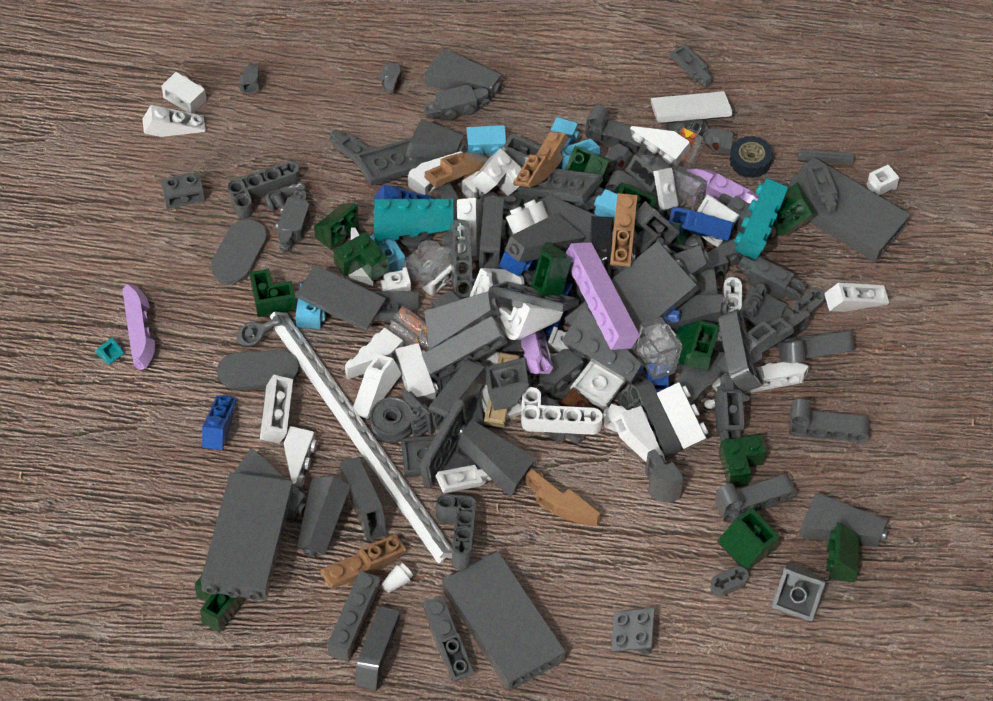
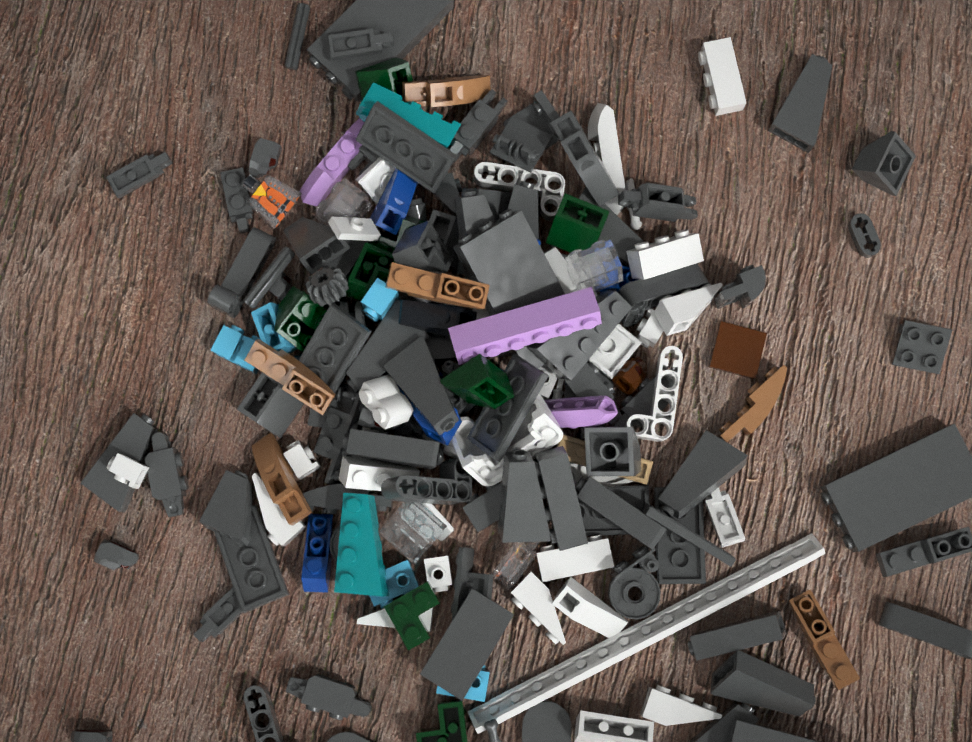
camera: 80 degrees left, 25 degrees up
(276, 197) = (292, 720): dark grey piece -> none
(337, 225) = (346, 640): dark green slope -> none
(353, 616) = (892, 655): dark grey brick -> none
(398, 577) = (842, 602): white cone -> none
(455, 71) = (127, 470): none -> white brick
(462, 512) = (798, 525): dark grey beam -> none
(485, 139) = (232, 442): medium azure piece -> none
(498, 171) = (296, 433): white brick -> none
(609, 487) = (737, 350): none -> reddish brown tile
(615, 170) = (327, 286): none -> dark grey gear
(617, 144) = (269, 277): none -> dark grey axle
(666, 143) = (274, 220): white slope -> none
(691, 107) = (207, 183): white tile -> none
(738, 214) = (406, 147): none -> dark grey tile
(738, 352) = (596, 178): dark grey beam -> none
(739, 455) = (713, 203): dark green brick -> none
(749, 539) = (822, 206): dark green slope -> none
(751, 156) = (290, 110): black wheel -> none
(759, 496) = (767, 197): dark grey beam -> none
(795, 250) = (447, 91): none -> medium nougat slope
(798, 348) = (576, 93): dark grey beam -> none
(806, 300) = (512, 87): dark grey beam -> none
(826, 425) = (678, 97): dark grey beam -> none
(843, 554) = (848, 109): dark green slope -> none
(852, 296) = (508, 36): white slope -> none
(853, 458) = (722, 76): none -> white brick

